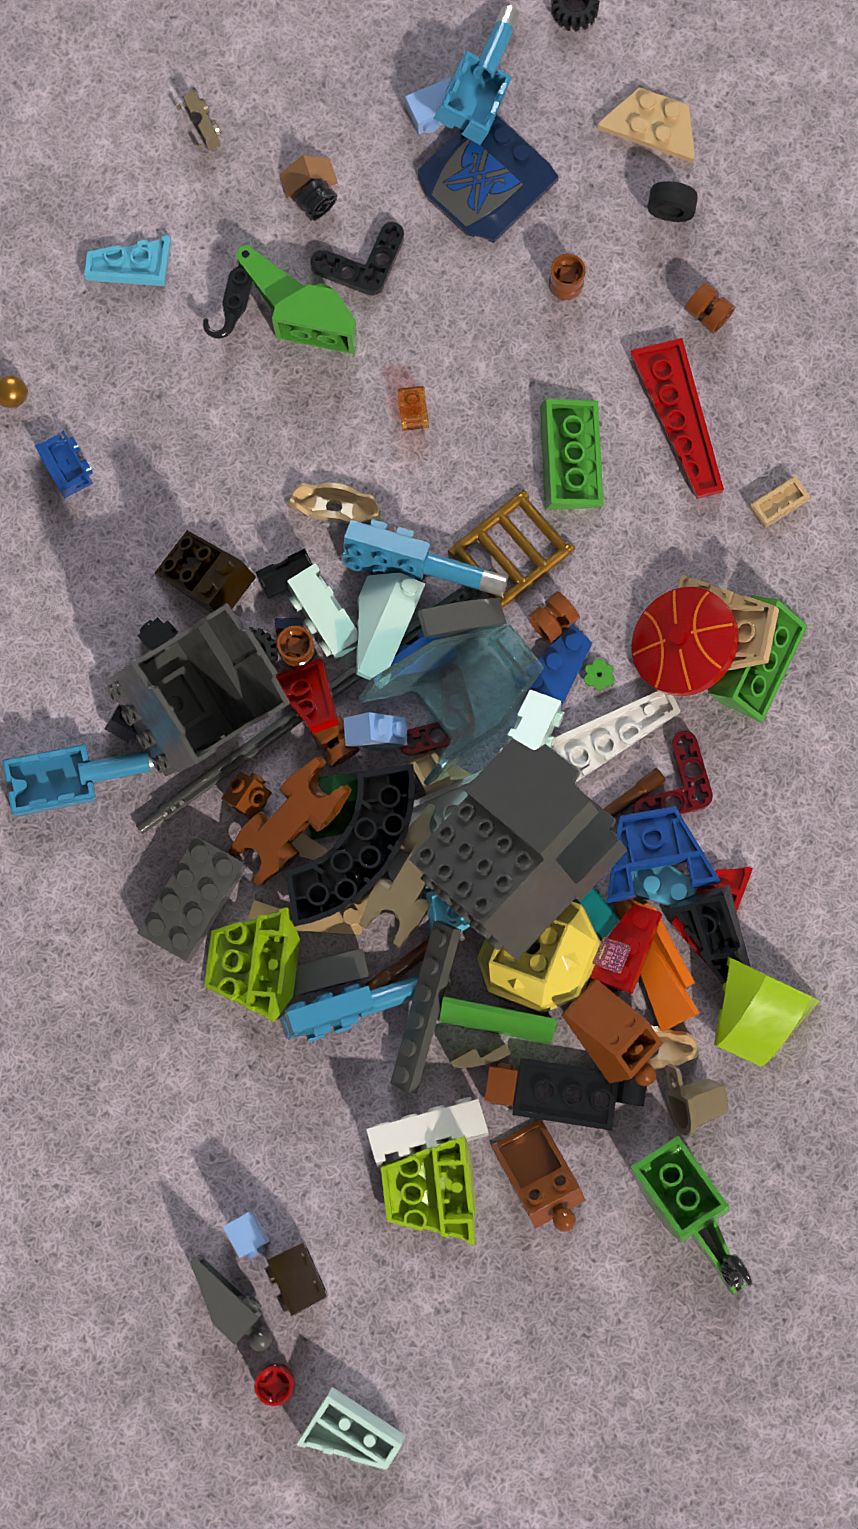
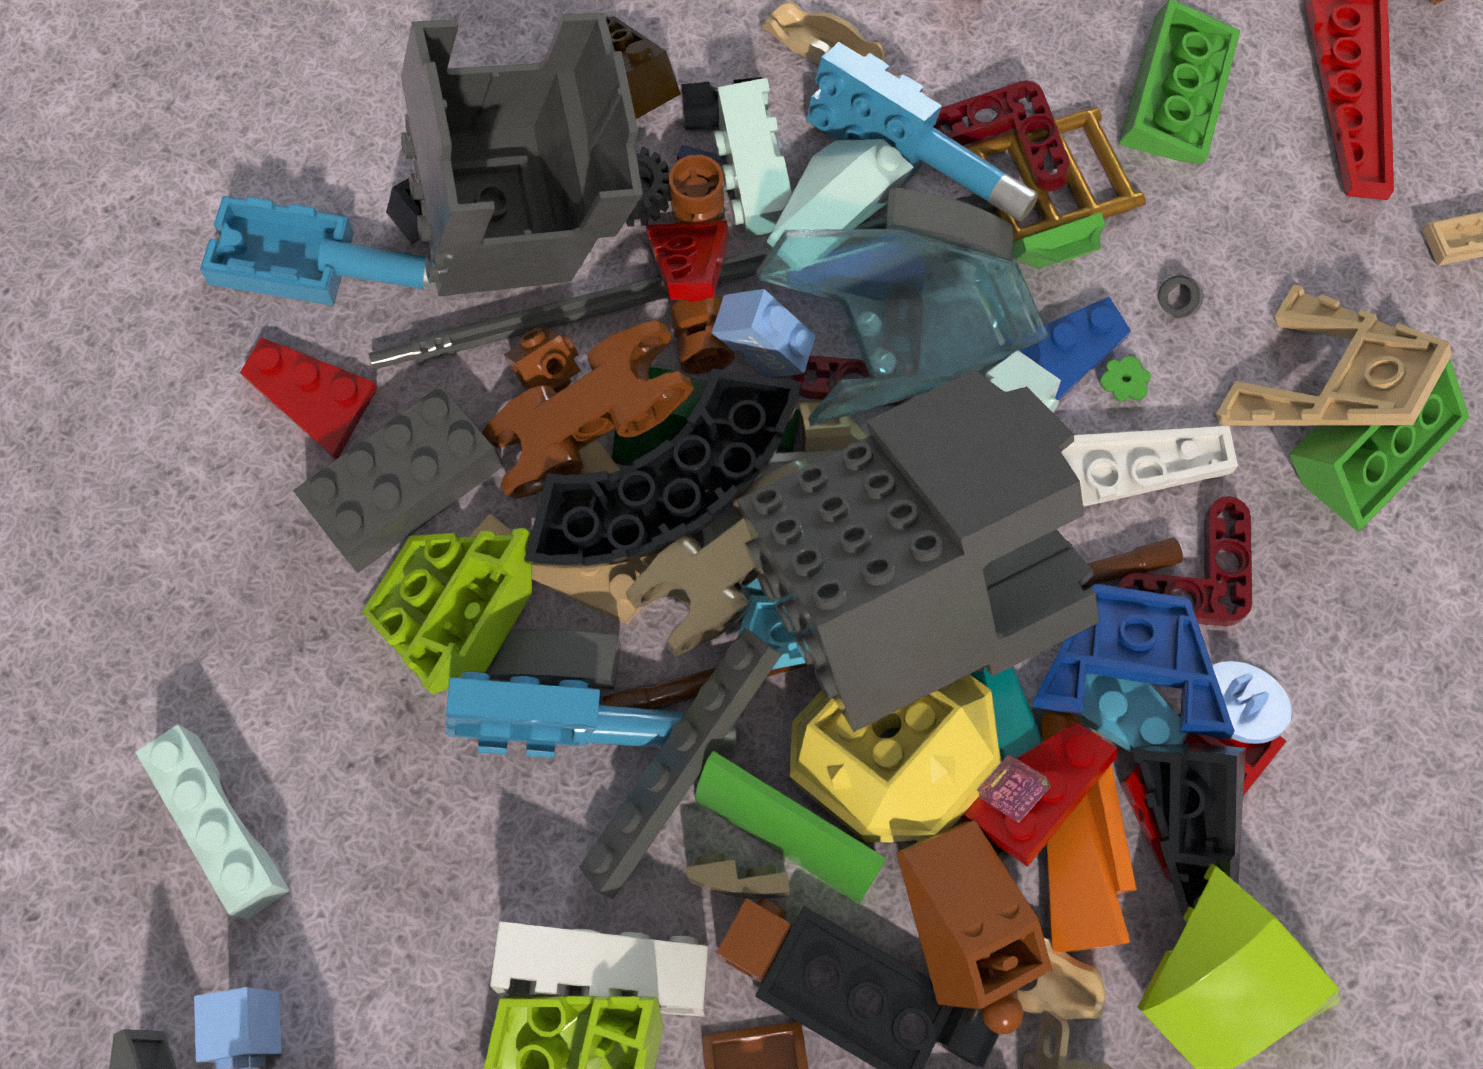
camera: 20 degrees right, 10 degrees down
(110, 863) = (310, 392): none -> red wing
(177, 1136) = (221, 843): none -> light aqua arch
(470, 521) = (1012, 115): none -> dark red beam
(533, 600) = (1060, 242): none -> bright green slope
(553, 617) = (1086, 276): dark orange wheel -> none
(619, 597) = (1196, 296): none -> dark grey piece
(685, 641) = (1280, 367): red dish -> none
(726, 852) = (1254, 702): none -> light blue piece

